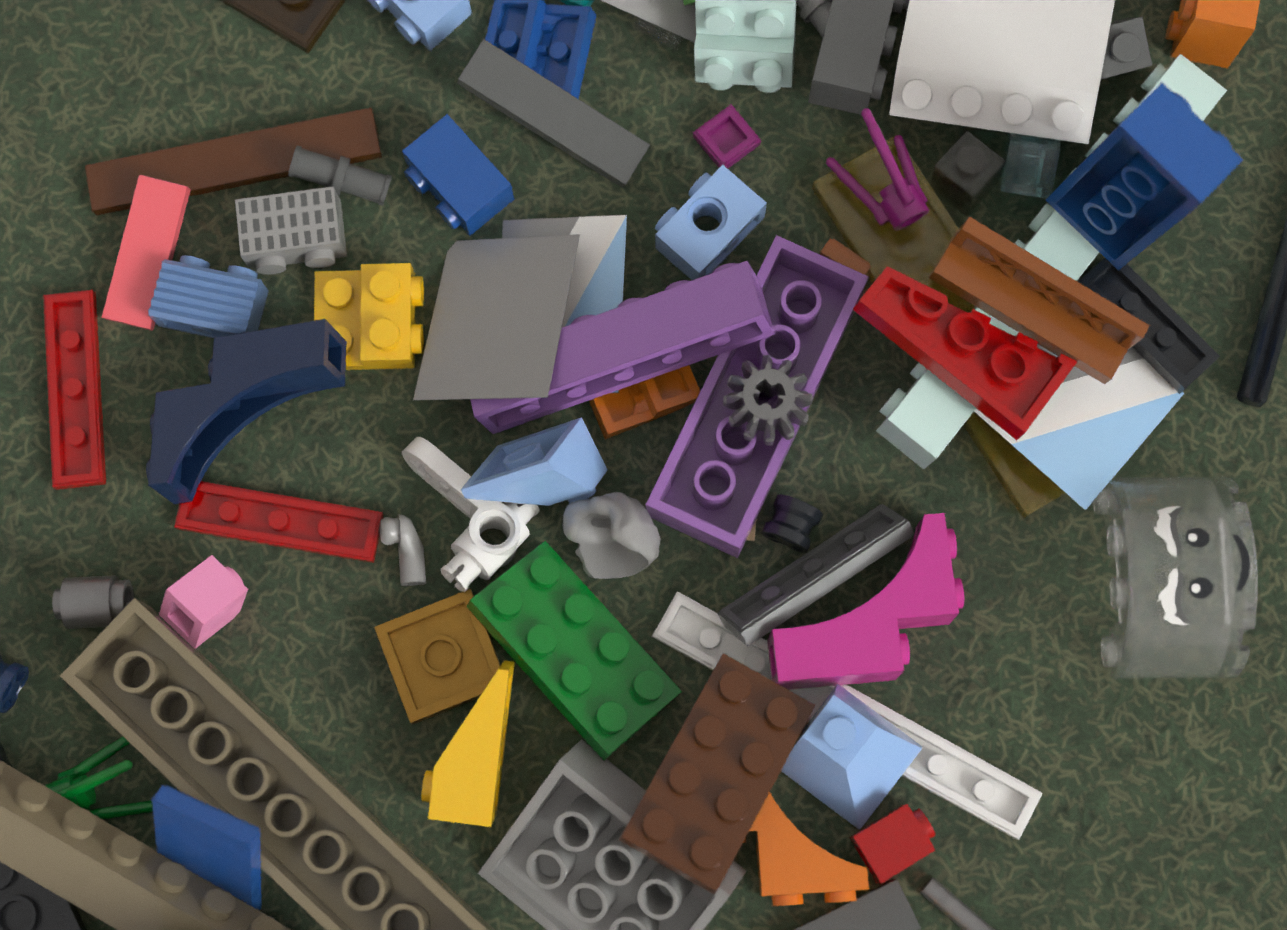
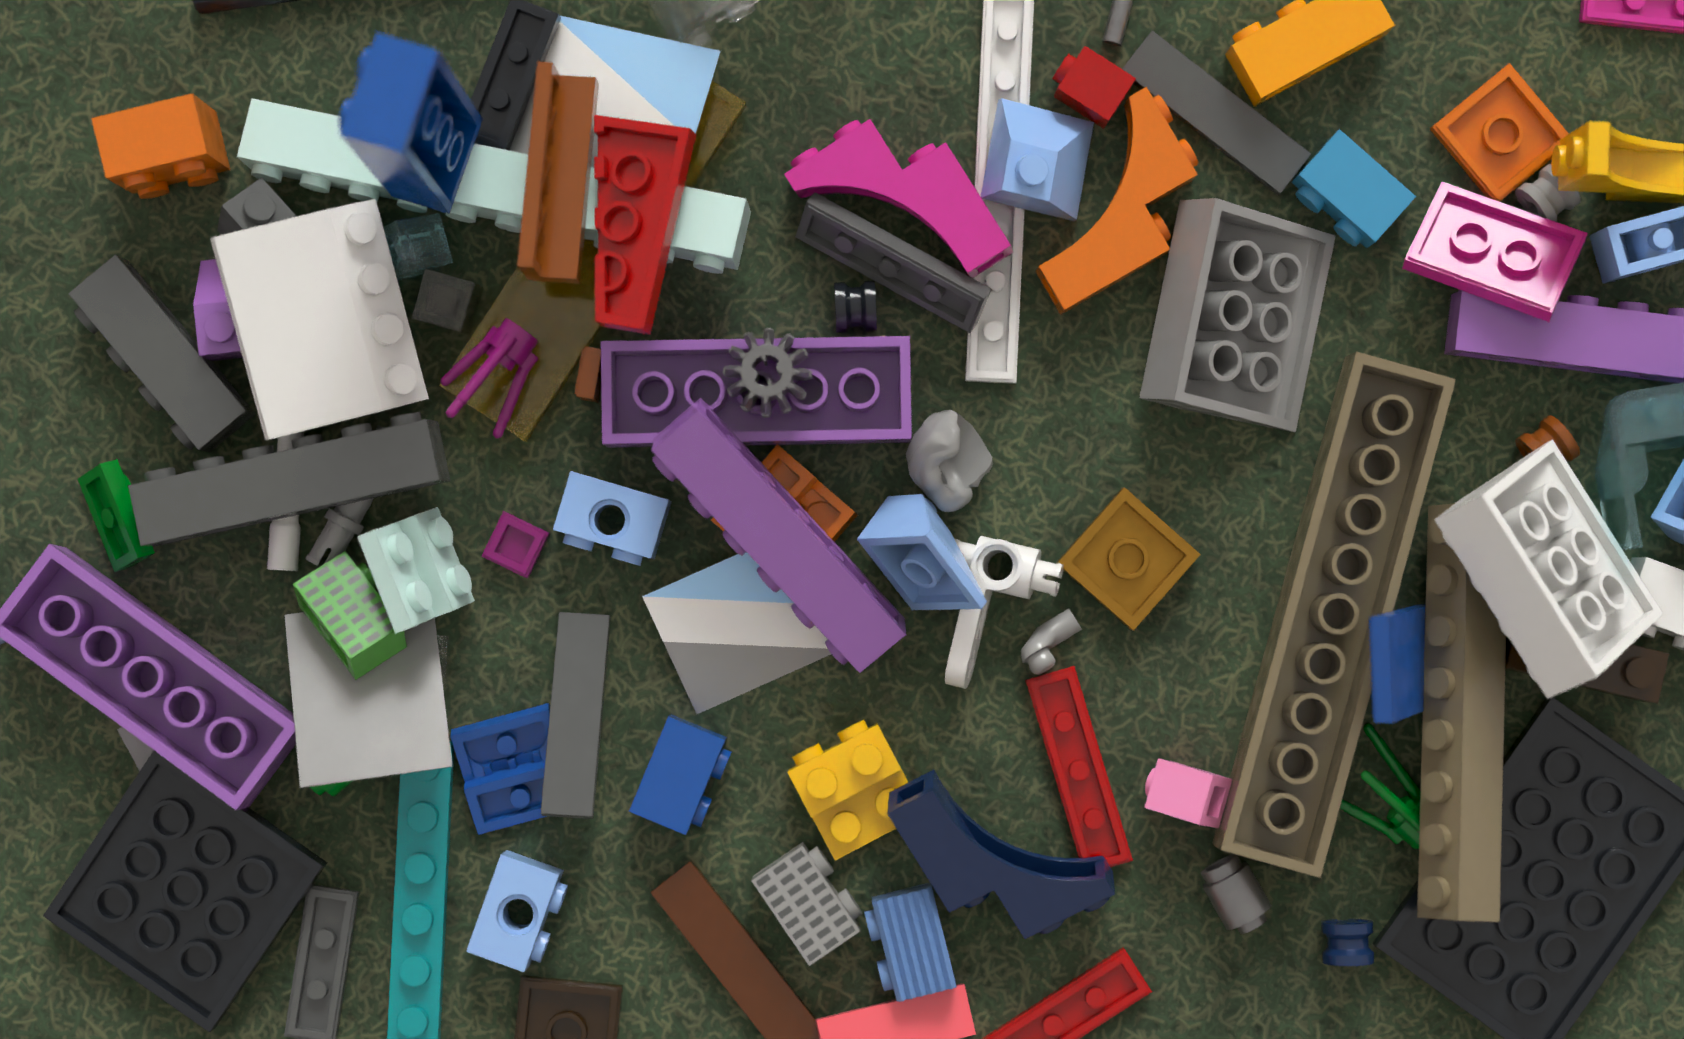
camera: 115 degrees left, 10 degrees up
(340, 174) = (733, 884): dark grey pin -> none
(469, 772) = (1205, 484): yellow slope -> none
(497, 318) = (801, 663): light grey sticker -> none
(574, 650) = (1064, 444): green plate -> none
(717, 774) = (1115, 259): reddish brown plate -> none

